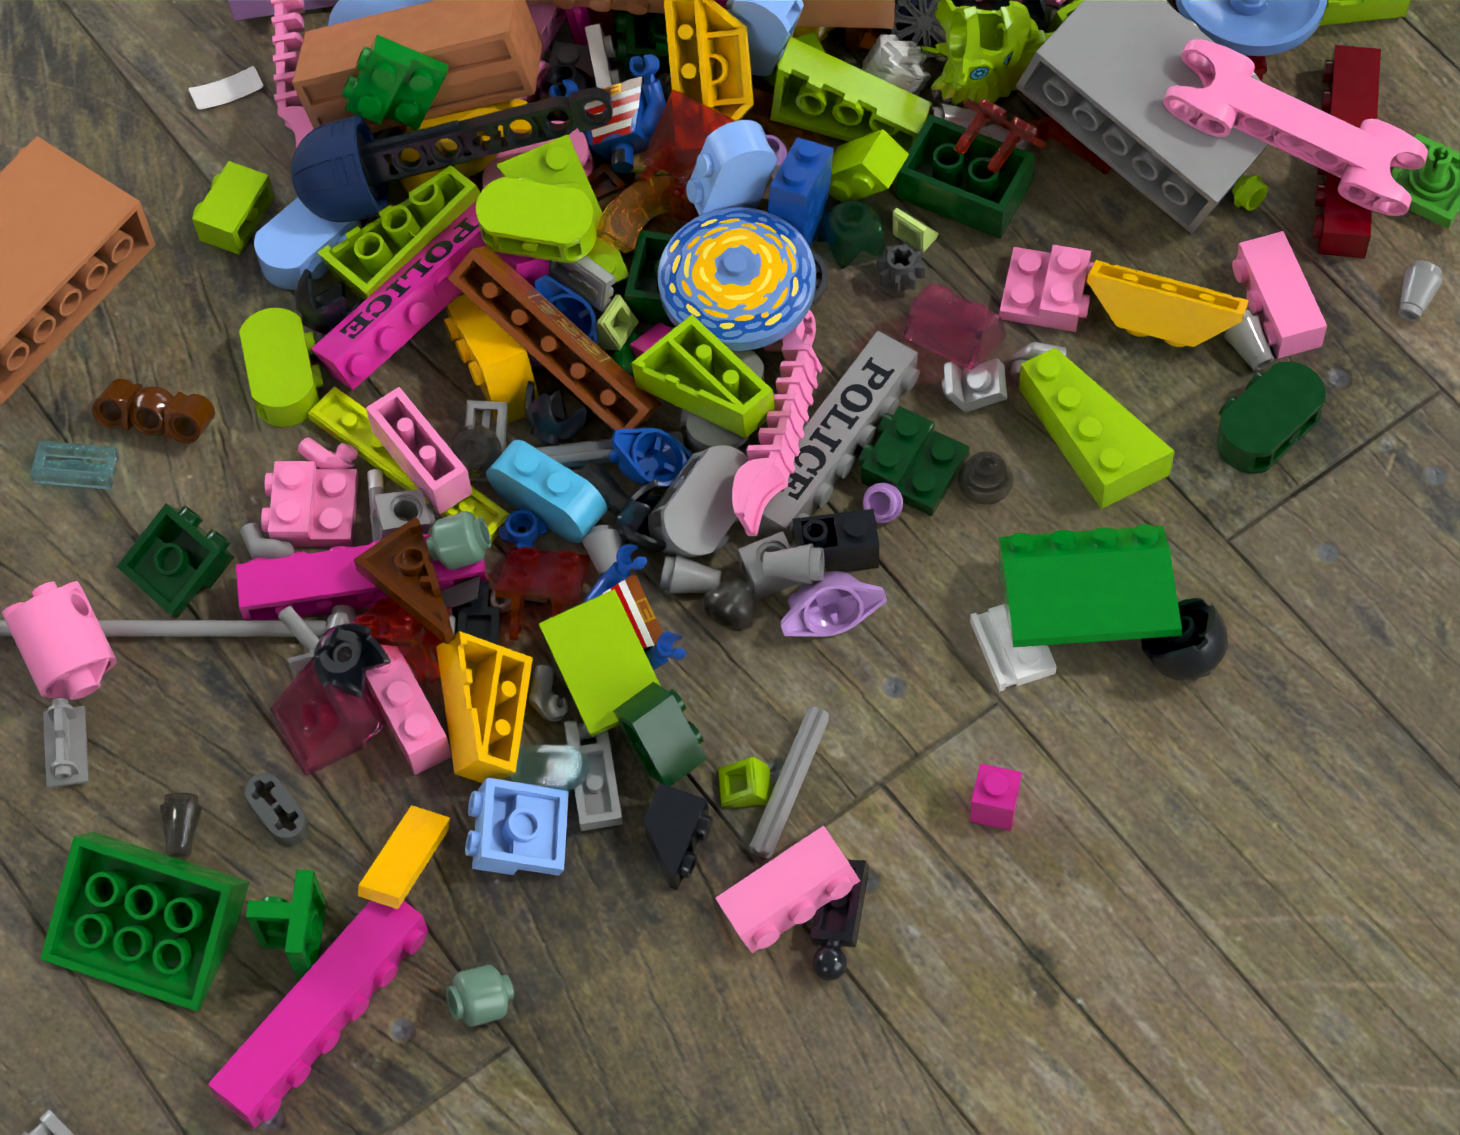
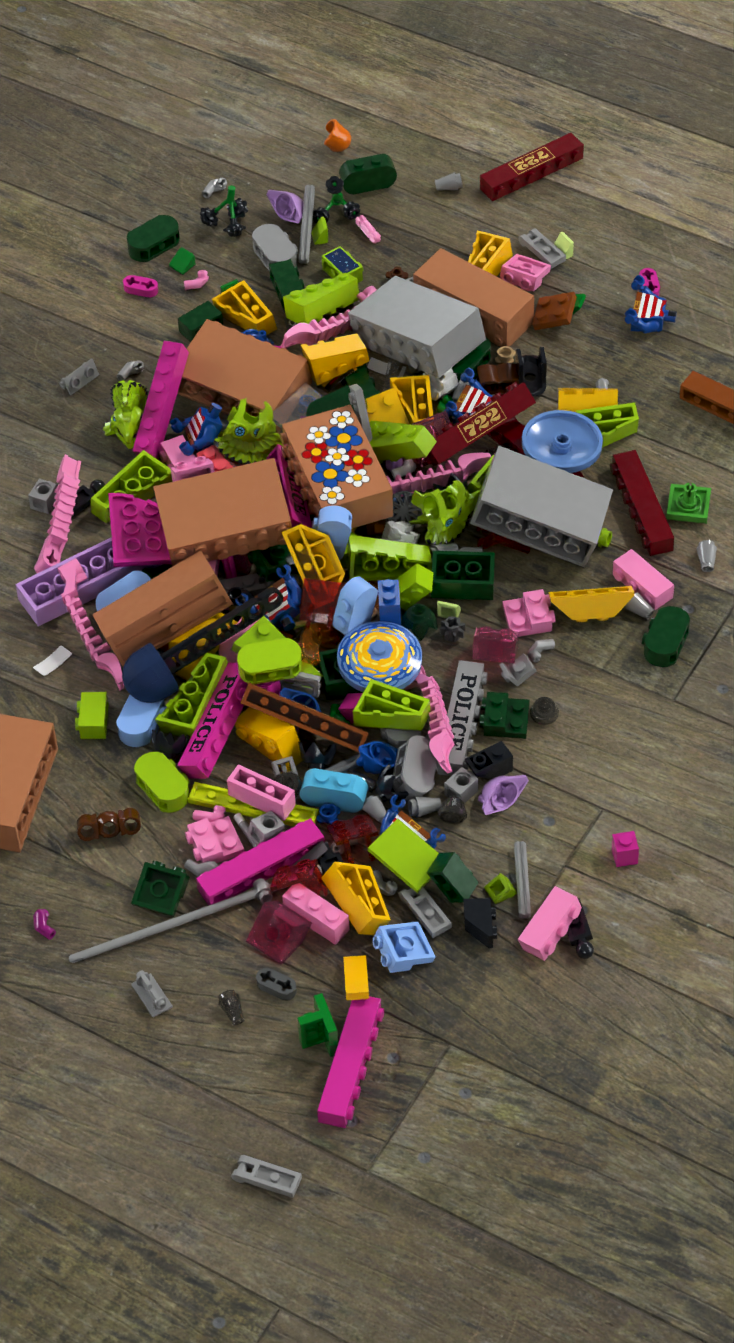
camera: 25 degrees left, 10 degrees down
(60, 641) = (128, 943): bright pink cylinder -> none
(73, 471) = (79, 868): clear light blue tile -> none
(143, 919) = (239, 1056): green slope -> none
(303, 634) = (258, 900): light grey plant -> none
(349, 667) = (282, 892): black piece -> none
(393, 83) = (161, 620): green plate -> none
(405, 573) = (289, 848): reddish brown wing -> none
(459, 540) = (307, 824): sand green head -> none
(479, 995) = (425, 1026): sand green head -> none
(551, 766) = (406, 912): clear light blue tile -> none
(601, 50) = (249, 577): white plate -> none
(615, 325) = (326, 701): yellowish green slope -> none
(796, 564) = (478, 777): light grey cone -> none
(885, 501) = (501, 735): lavender plate -> none
(1009, 663) = (596, 781): white plate -> none
(1018, 130) = (482, 543): clear red plate -> none
(1088, 586) = (621, 738): green slope -> none
(1093, 430) = (585, 670): lime wedge -> none
(1199, 647) = (679, 747): black cylinder -> none
(1352, 153) = (650, 500): bright pink piece -> none

